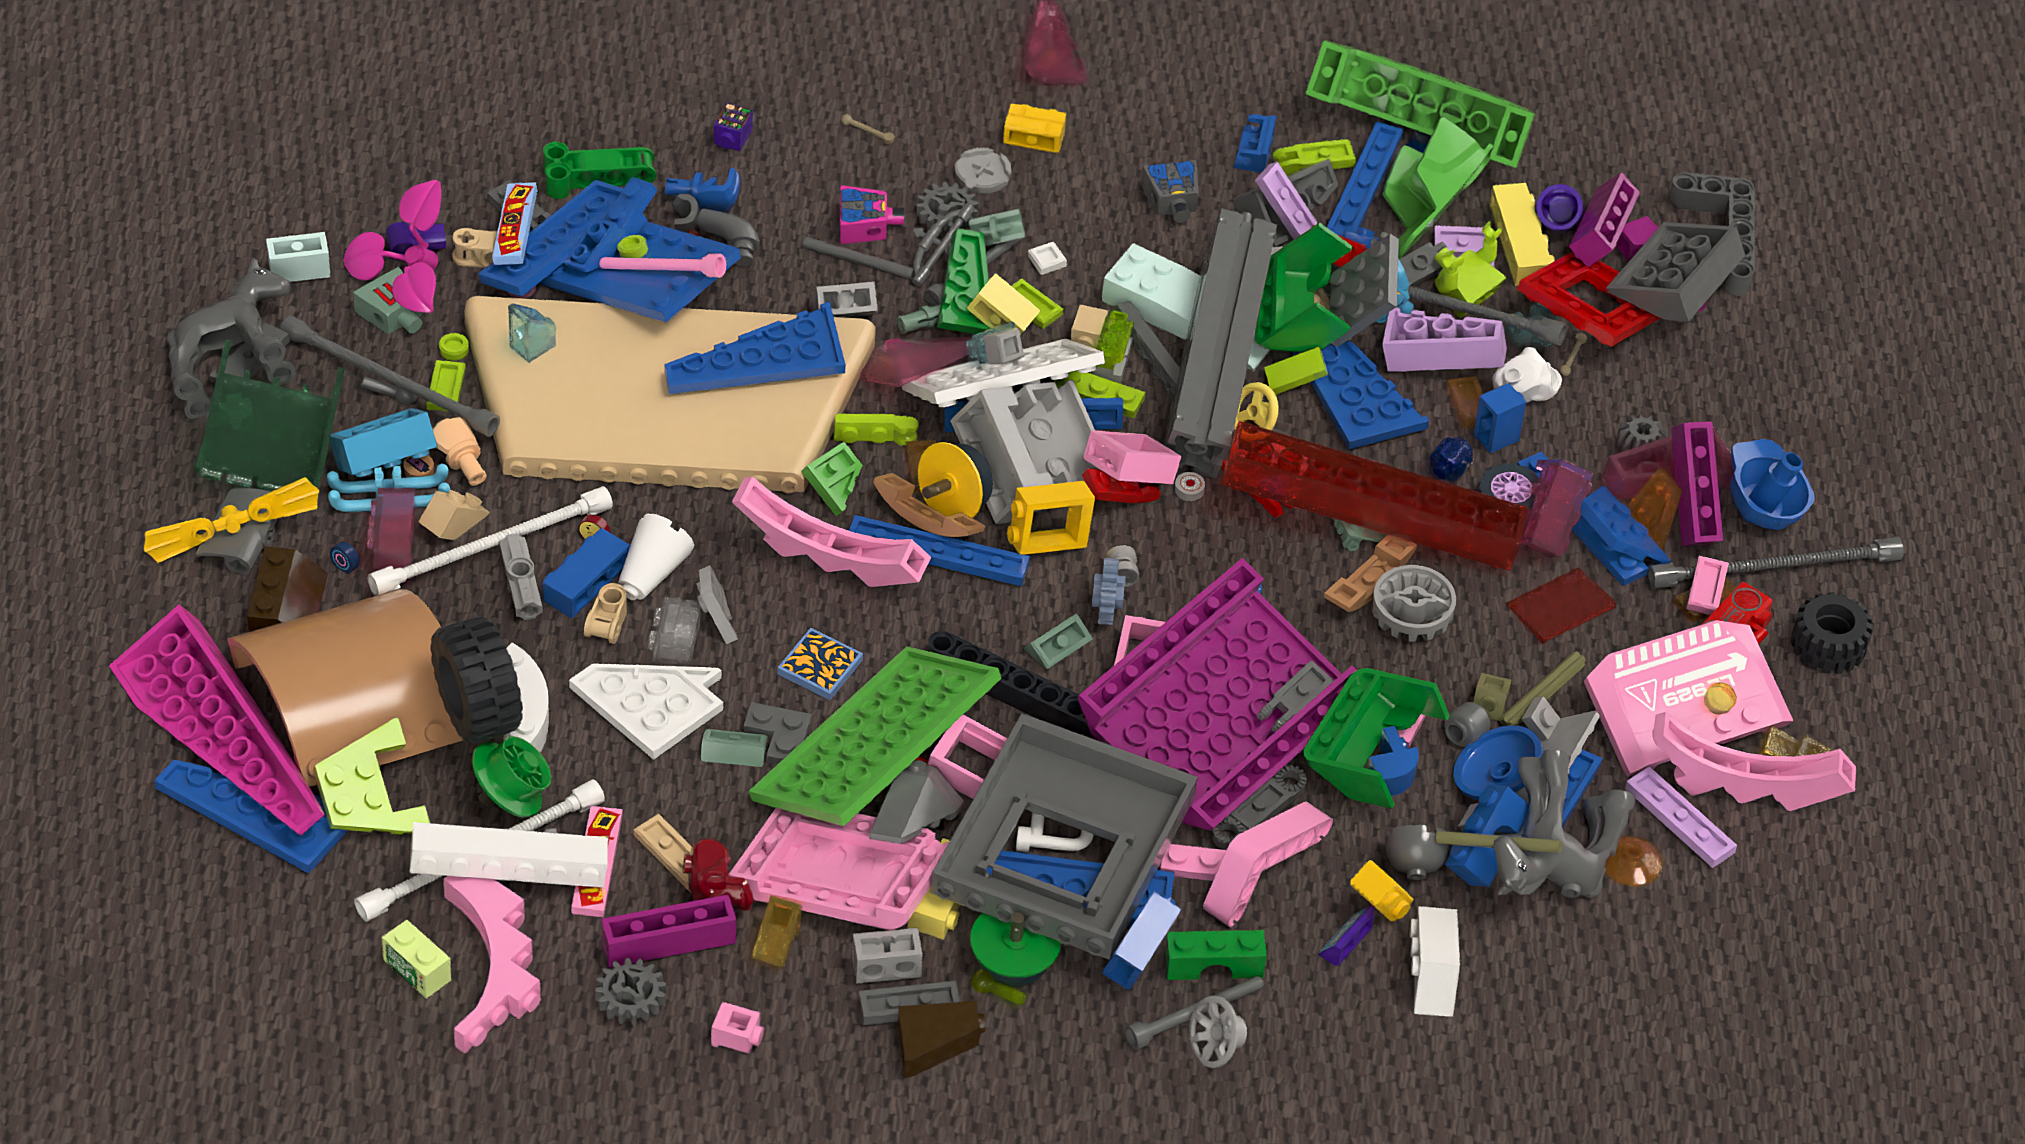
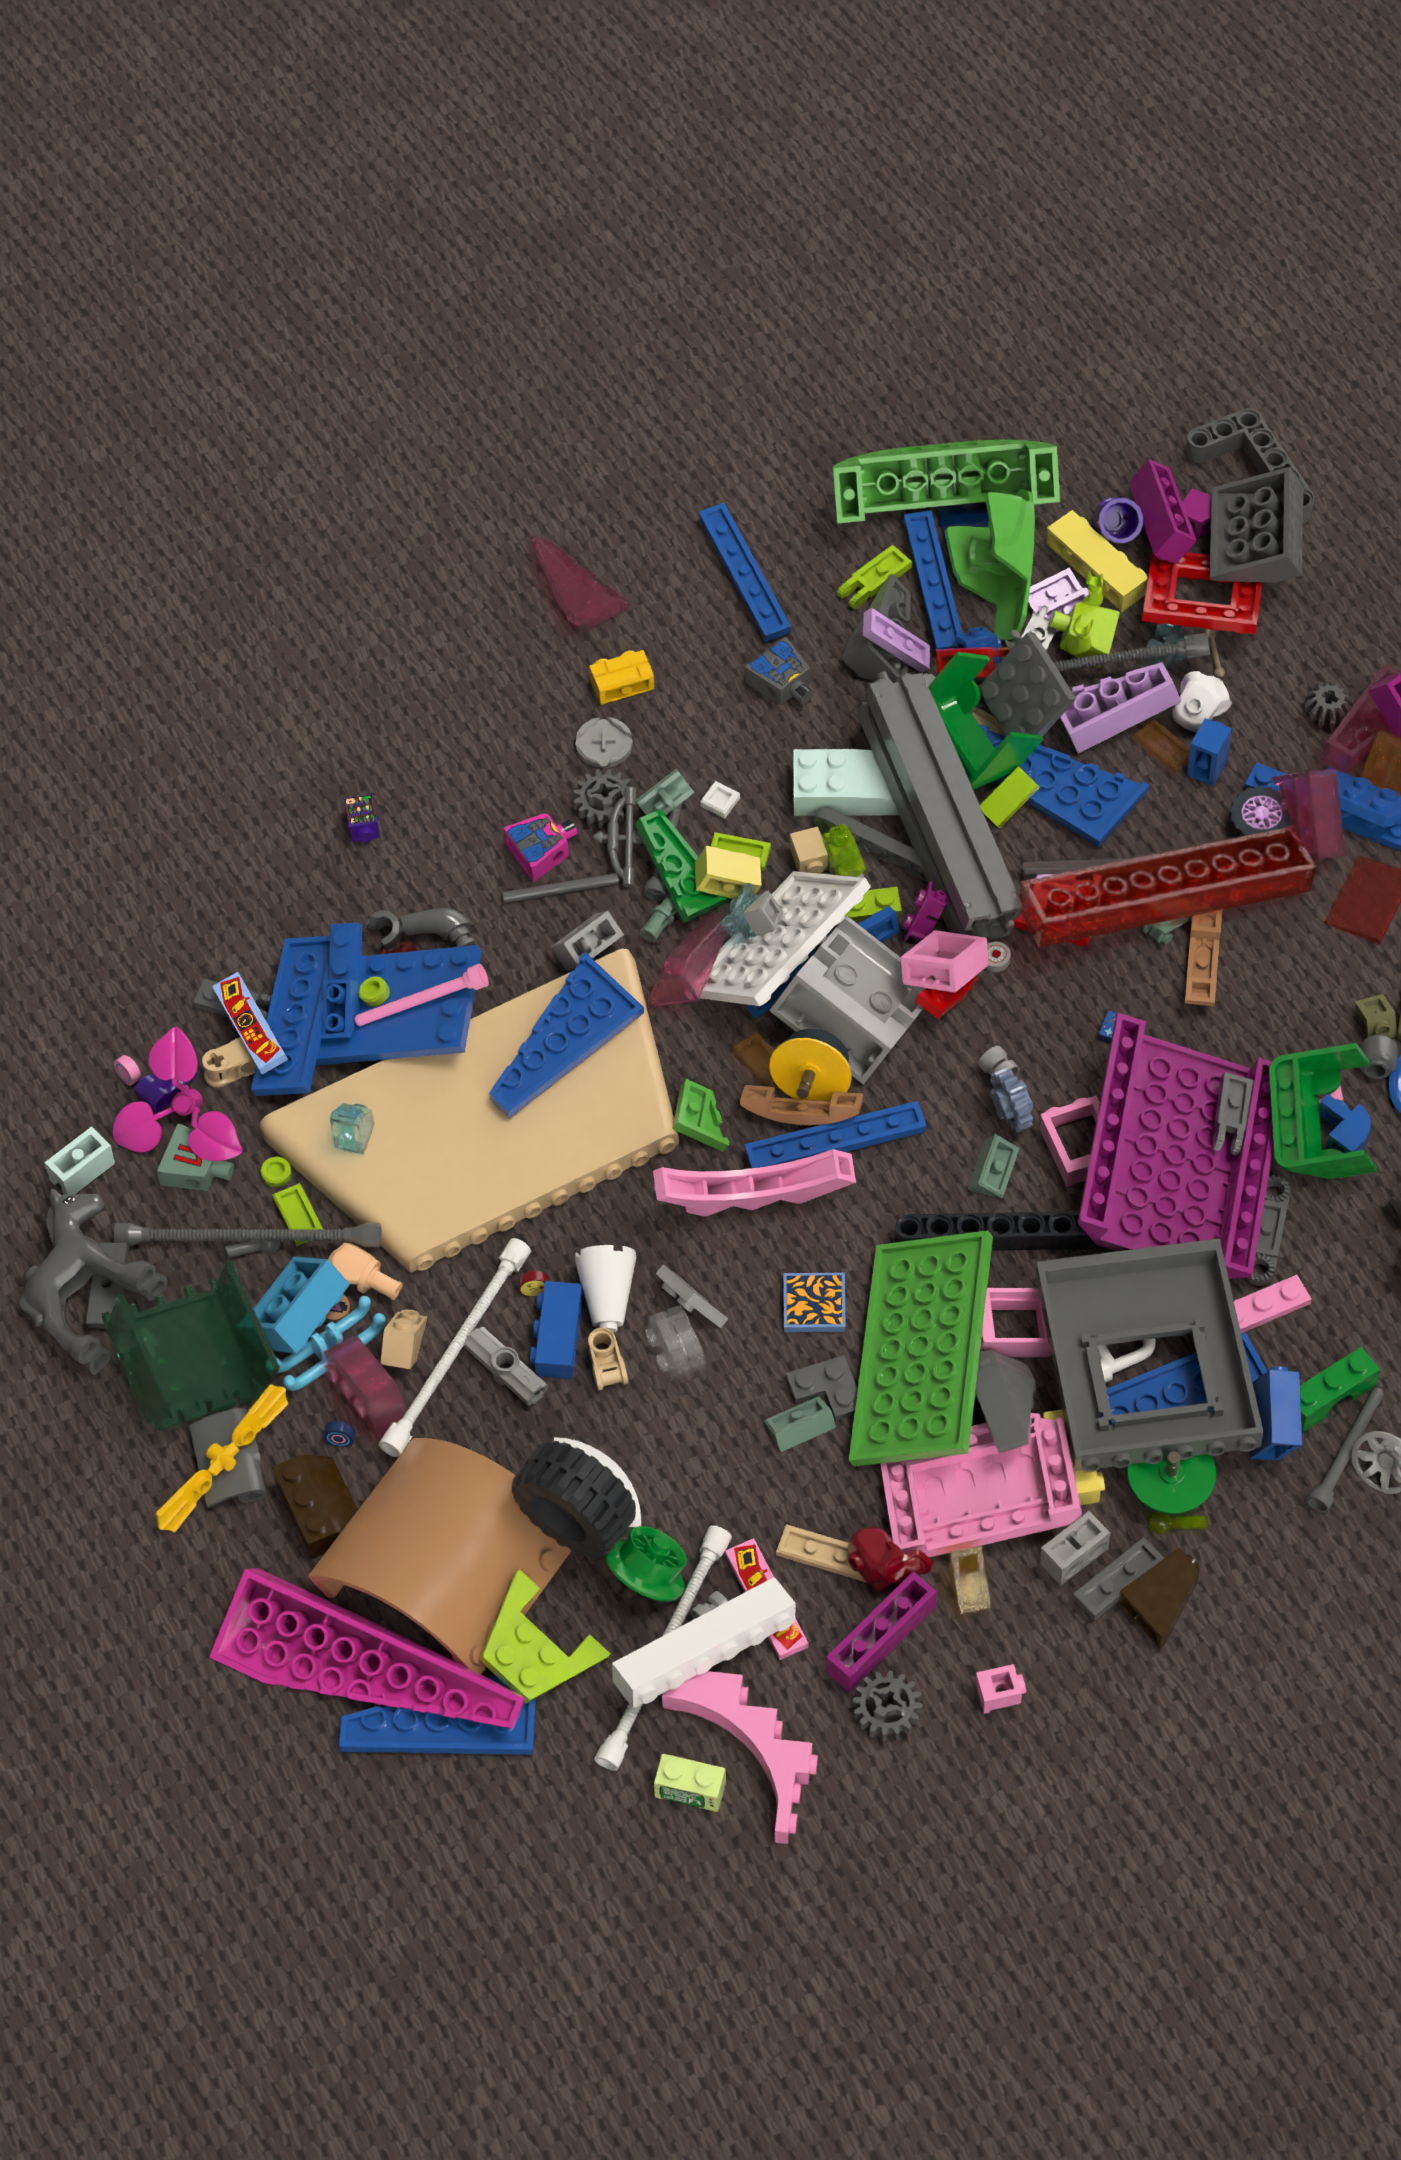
camera: 25 degrees left, 10 degrees up
(392, 212) = (127, 1070): none -> bright pink tile
(580, 168) = (270, 926): green piece -> none
(650, 702) = (701, 1422): white wing -> none
(707, 193) = (383, 899): blue piece -> none
(875, 428) = (699, 1049): lime hinge -> none
(887, 137) = (498, 753): dark tan hinge -> none
(1032, 498) = (925, 1034): yellow window -> none
(1153, 409) = (926, 903): none -> magenta hinge
(1204, 101) = (744, 572): none -> blue plate
(1256, 143) = (817, 590): blue hinge -> none
(1257, 851) = (1312, 1279): bright pink beam -> none
(1260, 412) = (1013, 850): light yellow piece -> none
(1414, 595) = (1264, 954): light grey gear -> none
(1451, 458) = (1192, 810): clear blue head -> none

